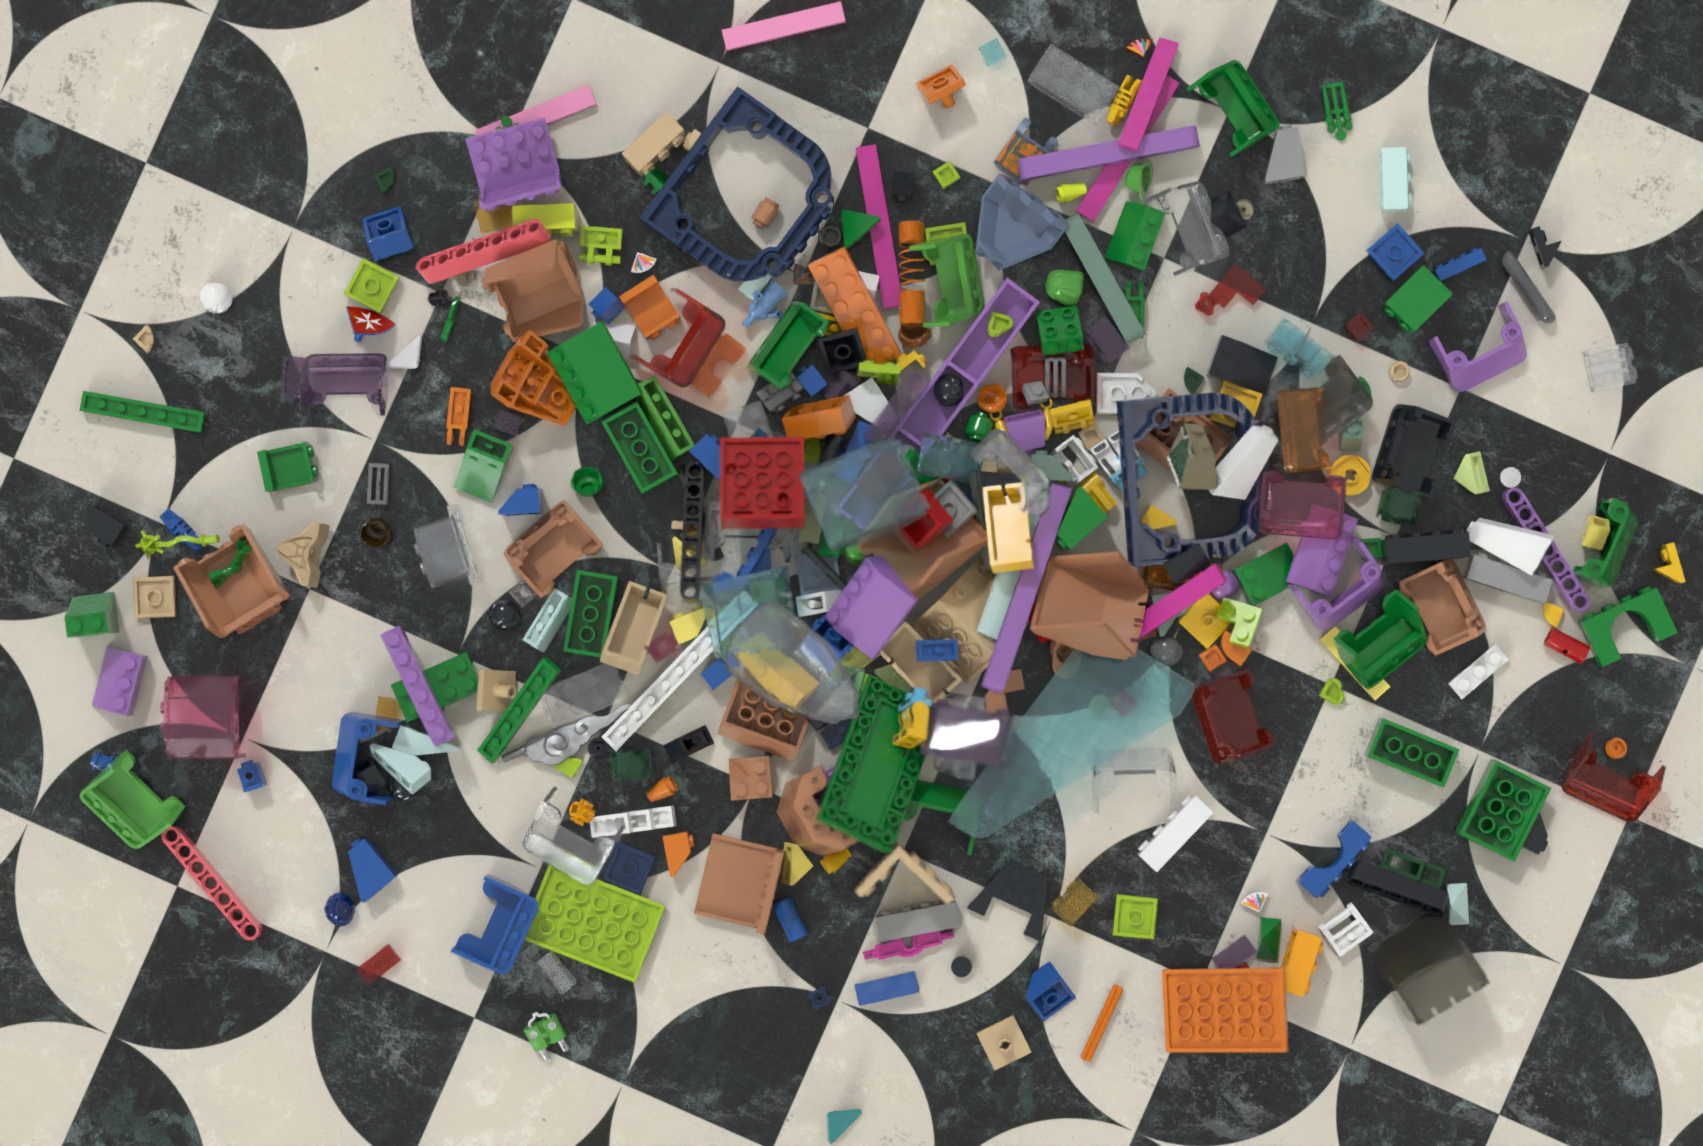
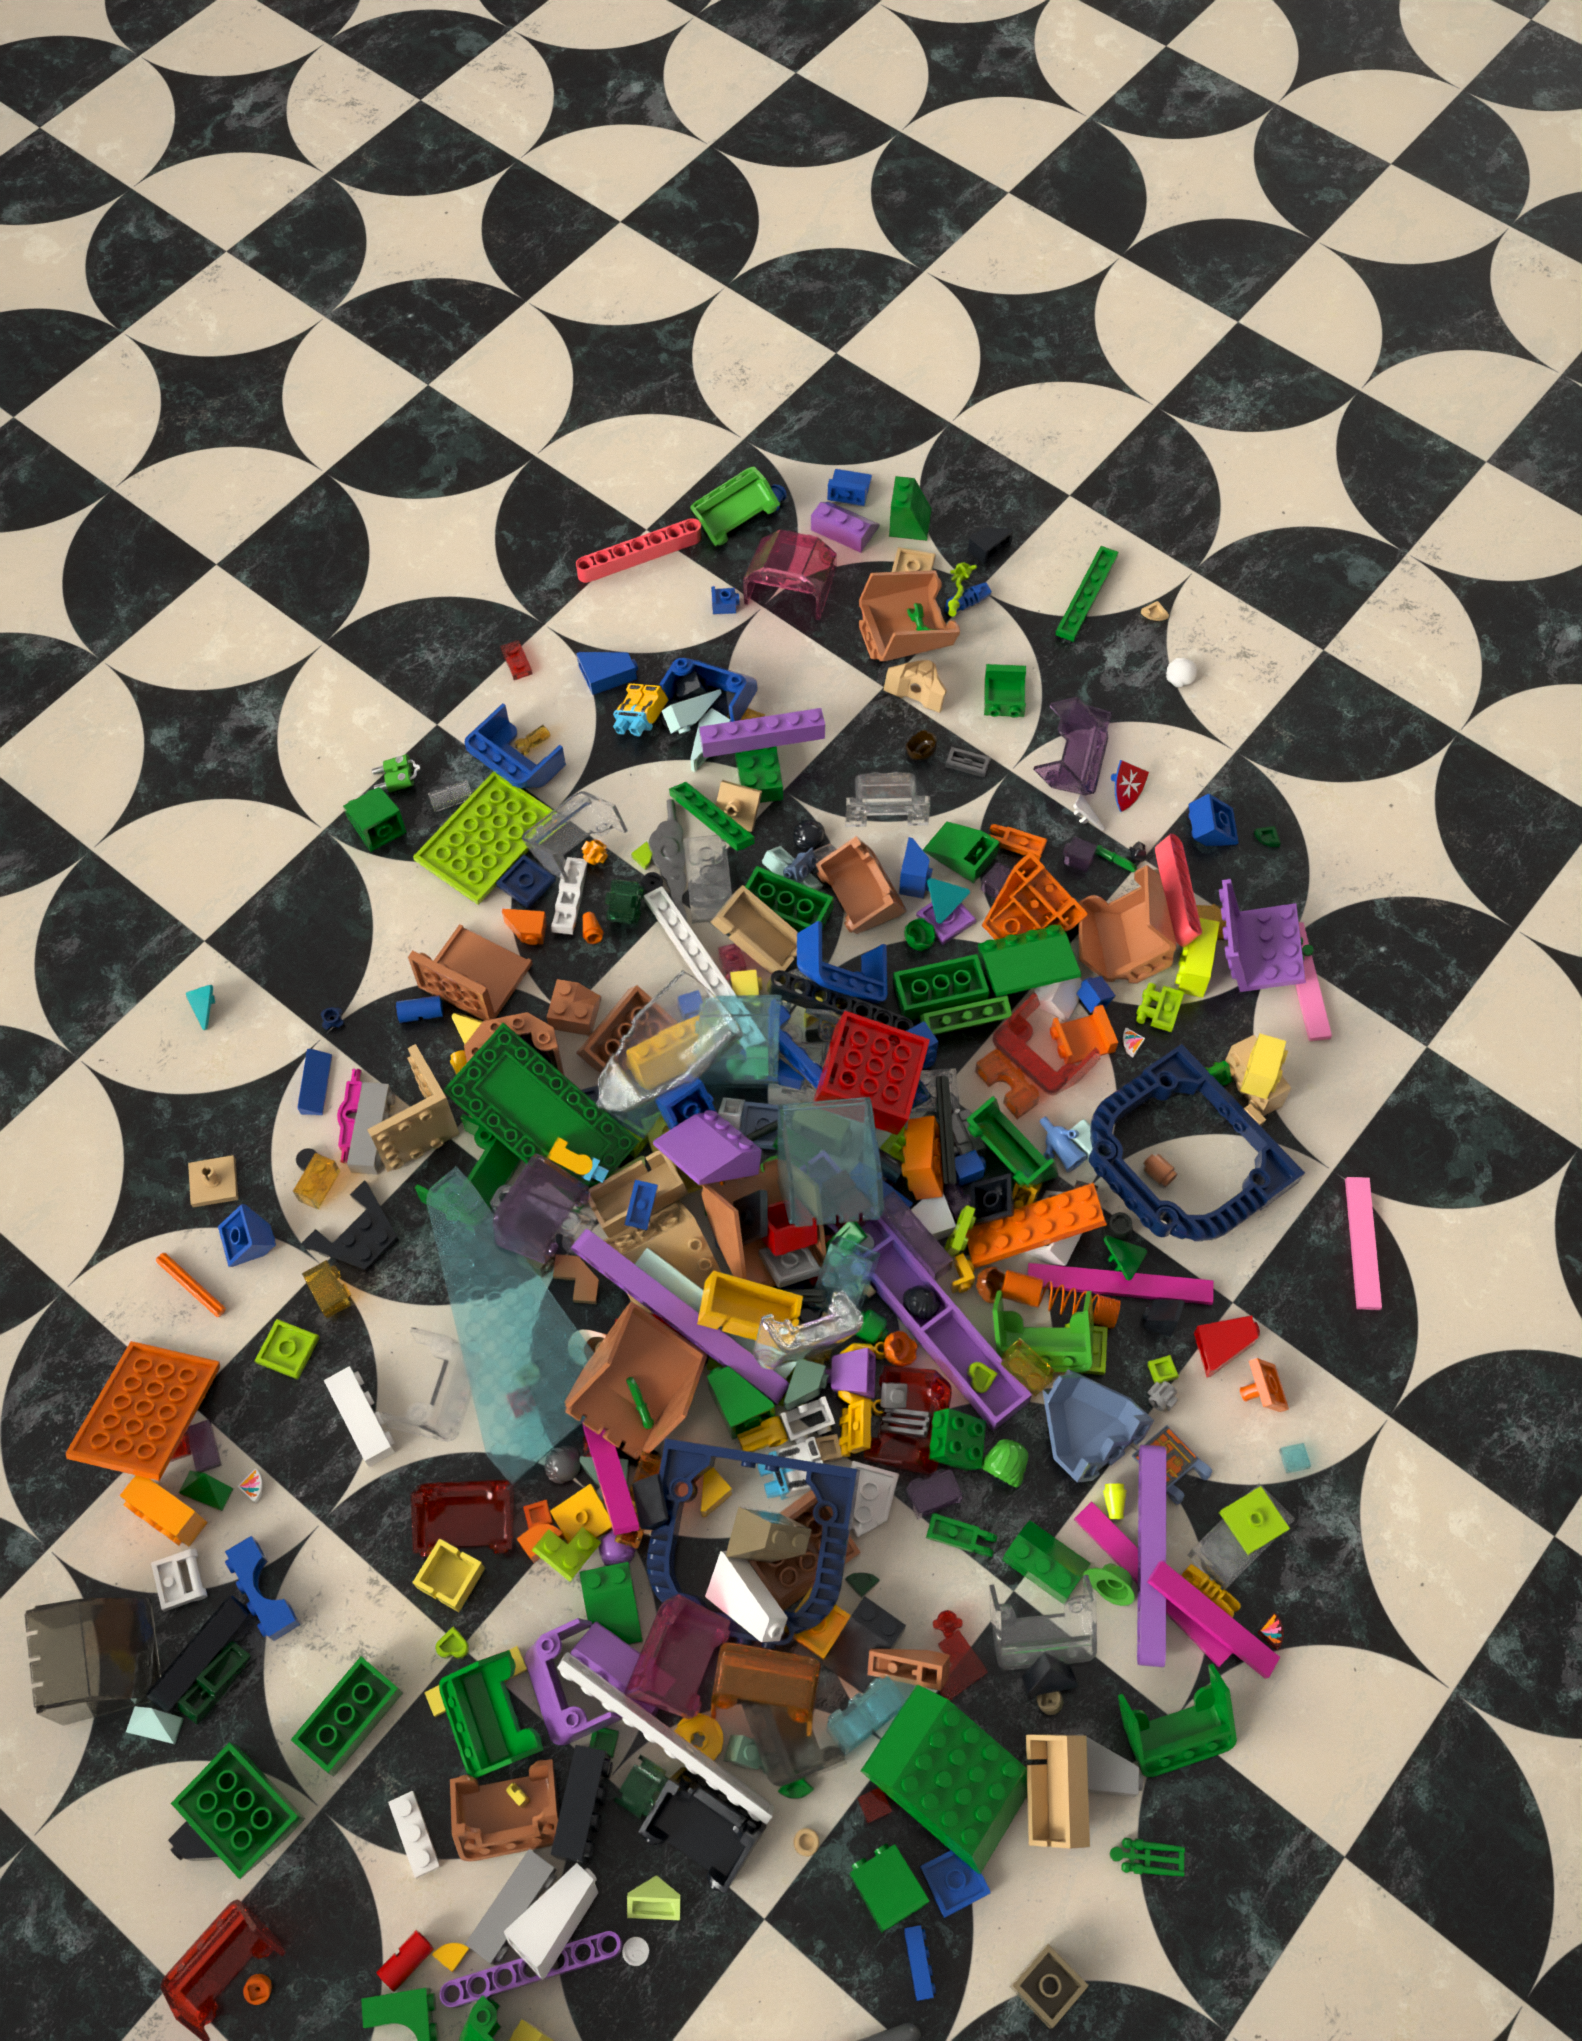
camera: 105 degrees right, 25 degrees down
(68, 689) = (849, 487): none -> blue bracket
(339, 909) = (578, 640): clear blue hair -> none
(371, 285) = (1164, 798): lime plate -> none
(411, 819) = (639, 709): none -> hips
(457, 353) = (1079, 854): none -> clear purple brick
(468, 914) = (532, 739): none -> clear yellow bar
(538, 609) = (801, 866): none -> sand blue hinge
(545, 466) = (945, 897): none -> teal piece
(558, 462) = (952, 926): none -> medium lavender tile
(601, 1036) = (375, 818): none -> green slope
(655, 517) = (865, 985): none -> blue windscreen
(661, 137) = (1264, 1066): none -> light yellow brick
(688, 744) = (628, 962): black slope -> none
(787, 407) = (945, 1130): none -> pearl dark grey axle
(909, 127) = (1225, 1341): none -> red slope
(925, 550) = (753, 1216): none -> black plate
(972, 170) = (1162, 1396): none -> light grey gear
(981, 948) = (316, 1181): none -> clear yellow brick
(984, 286) = (1027, 1367): none -> clear yellow brick
(1064, 75) = (1254, 1520): none -> lime plate
(1103, 279) = (1004, 1507): sand green beam -> none
(1116, 589) = (648, 1422): none -> green piece
(1252, 321) = (910, 1666): none -> nougat slope
(1283, 710) = (447, 1576): none -> light yellow piece
(1314, 188) = (1058, 1791): none -> tan piece
(1328, 273) = (949, 1776): none -> green slope
(1361, 498) = (659, 1733): none -> white plate
(1394, 179) = (1046, 1906): light aqua brick -> none
(1429, 601) = (517, 1795): none -> light yellow tile
(1450, 165) = (1049, 1986): none -> dark tan brick
(1467, 374) = (790, 1997): medium lavender windscreen -> none

